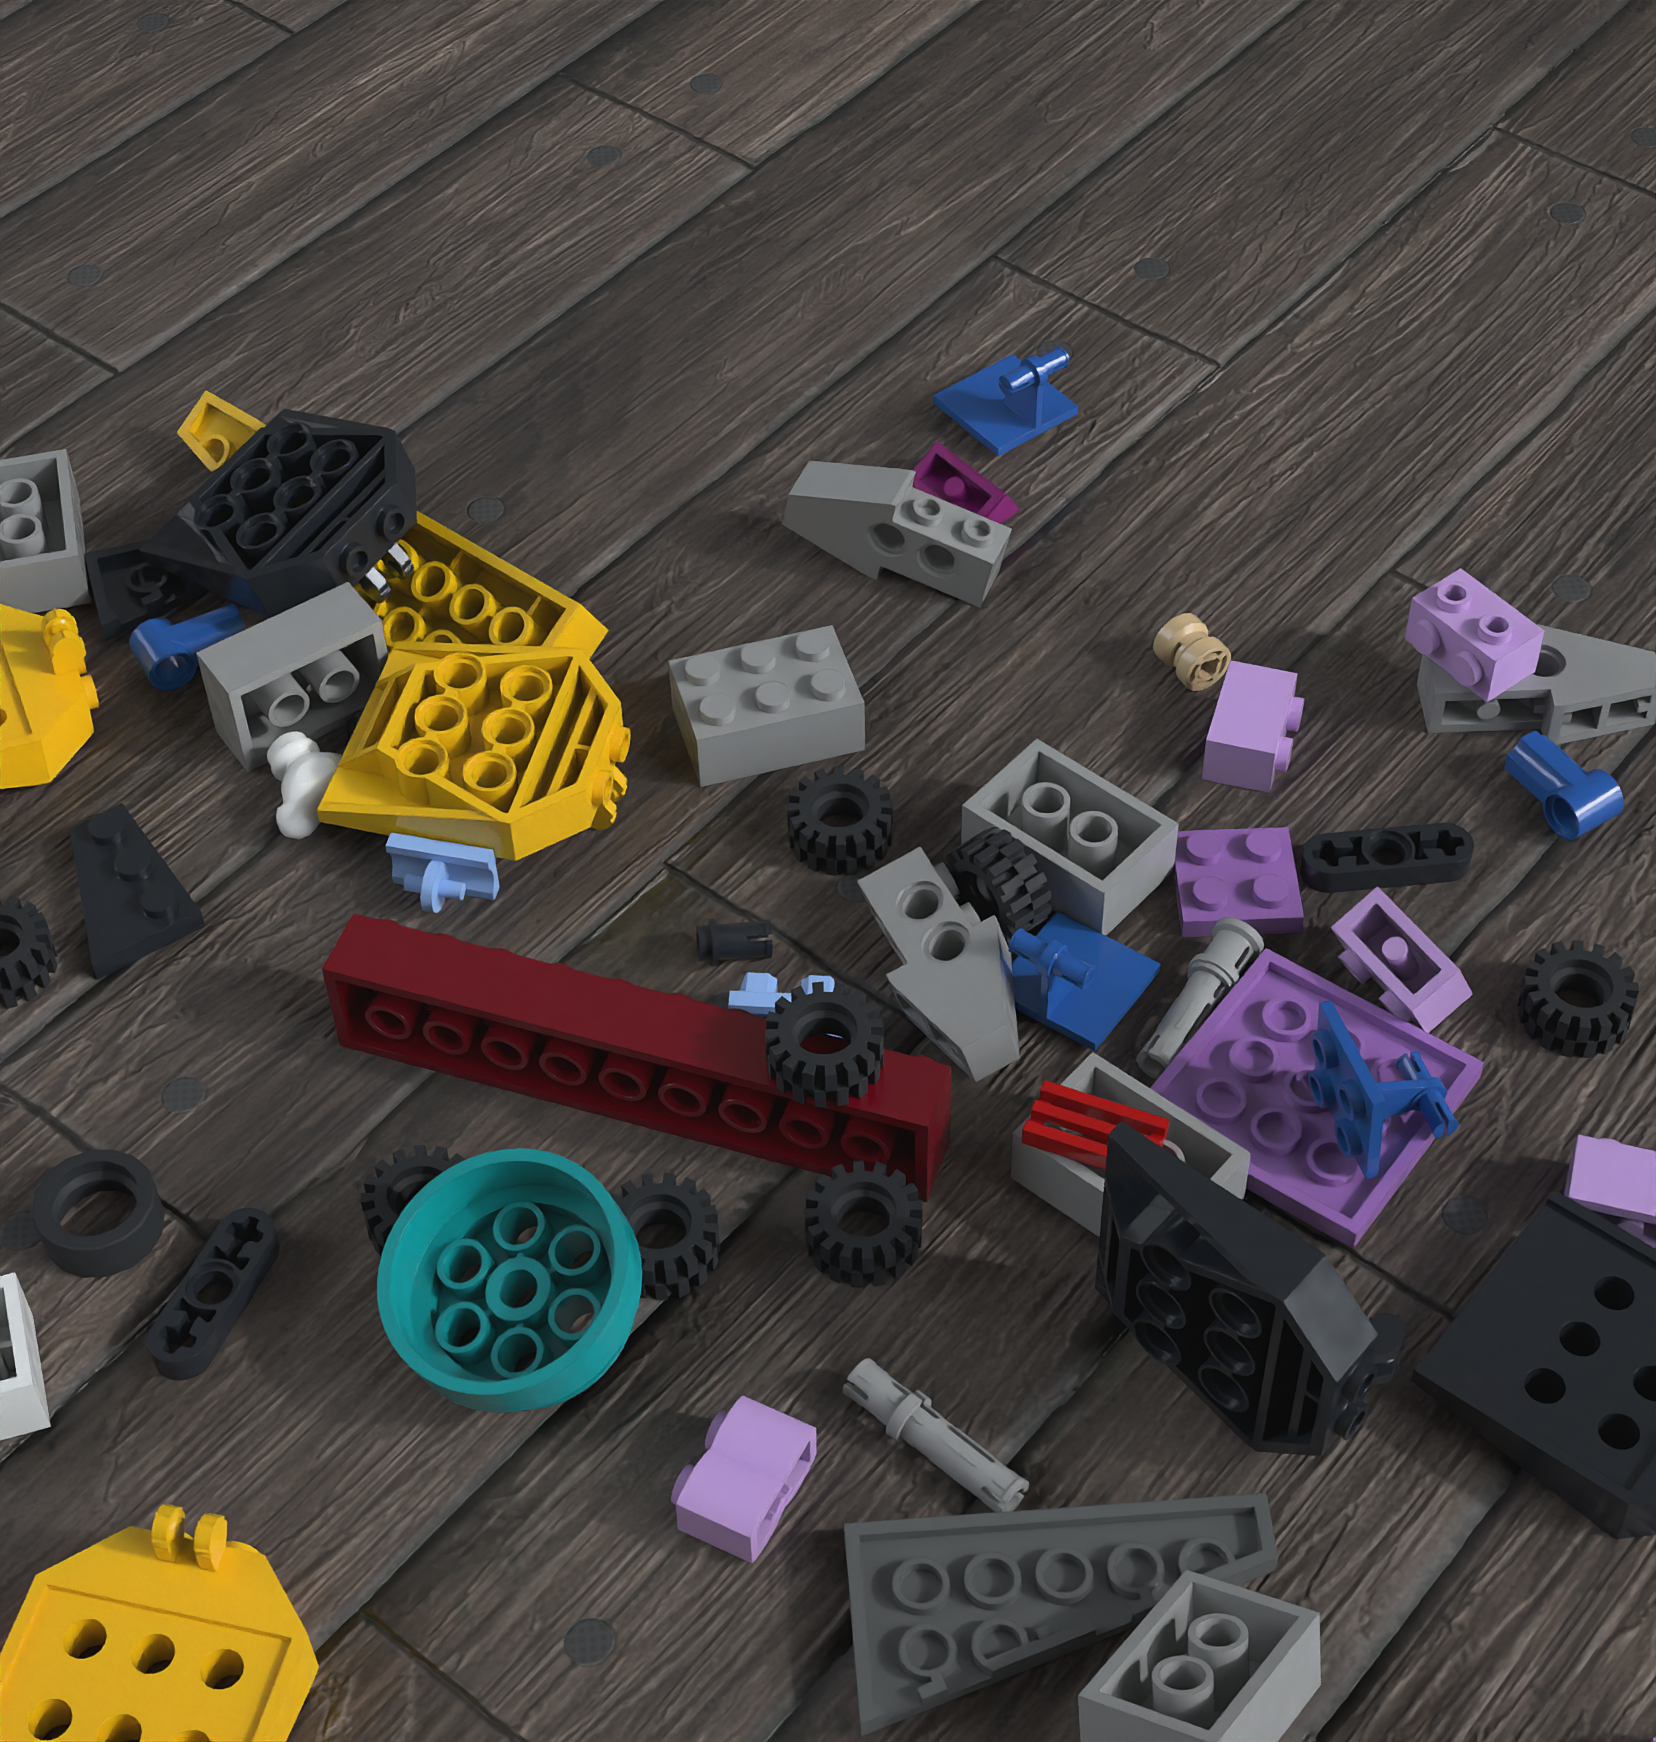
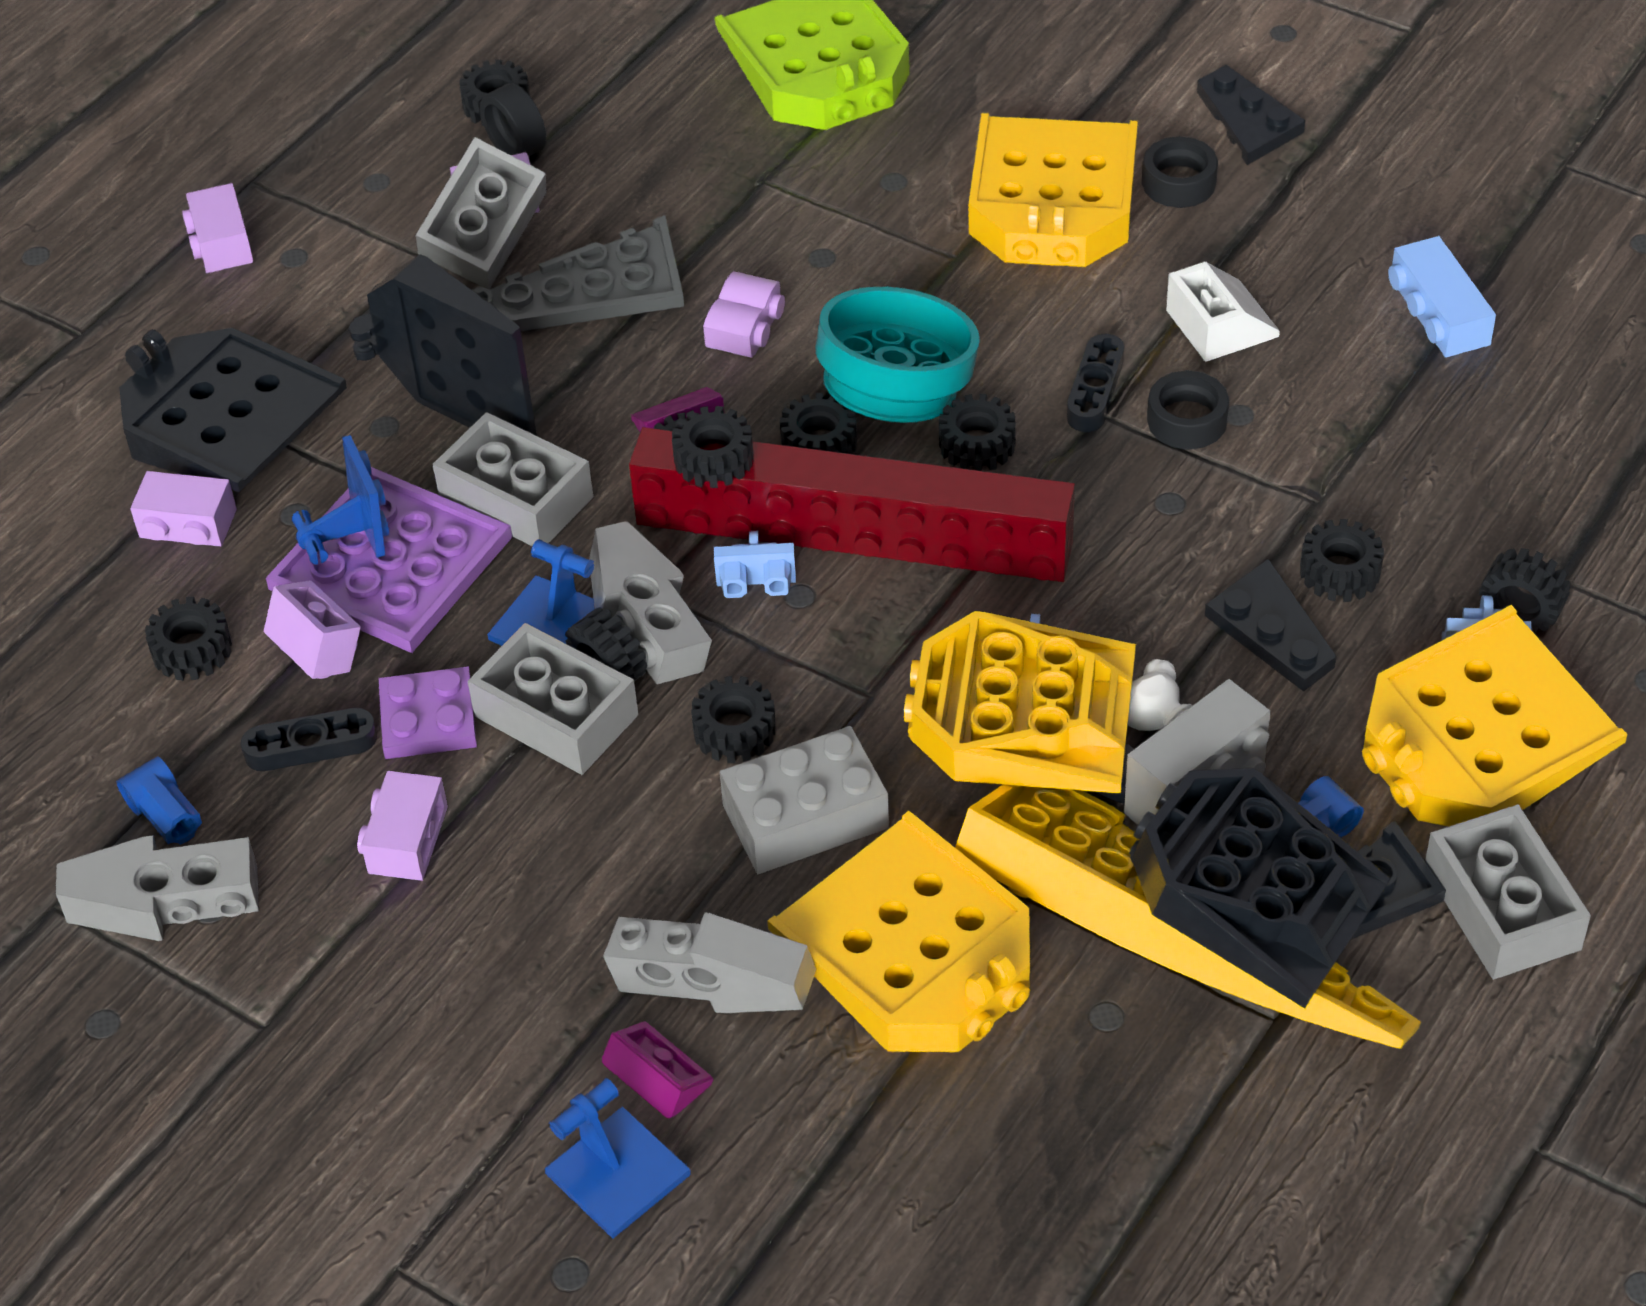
camera: 175 degrees right, 0 degrees up
(668, 548) = (889, 883): none -> yellow hinge
(730, 941) = (802, 622): black pin -> none
(872, 1306) = (693, 401): none -> magenta slope
(913, 1420) = (670, 365): light grey pin -> none
(1086, 1115) = (535, 449): red tile -> none
(1197, 658) = (451, 895): tan wheel -> none
(1209, 981) = (451, 626): light grey pin -> none
(1474, 635) = (210, 860): lavender brick -> none

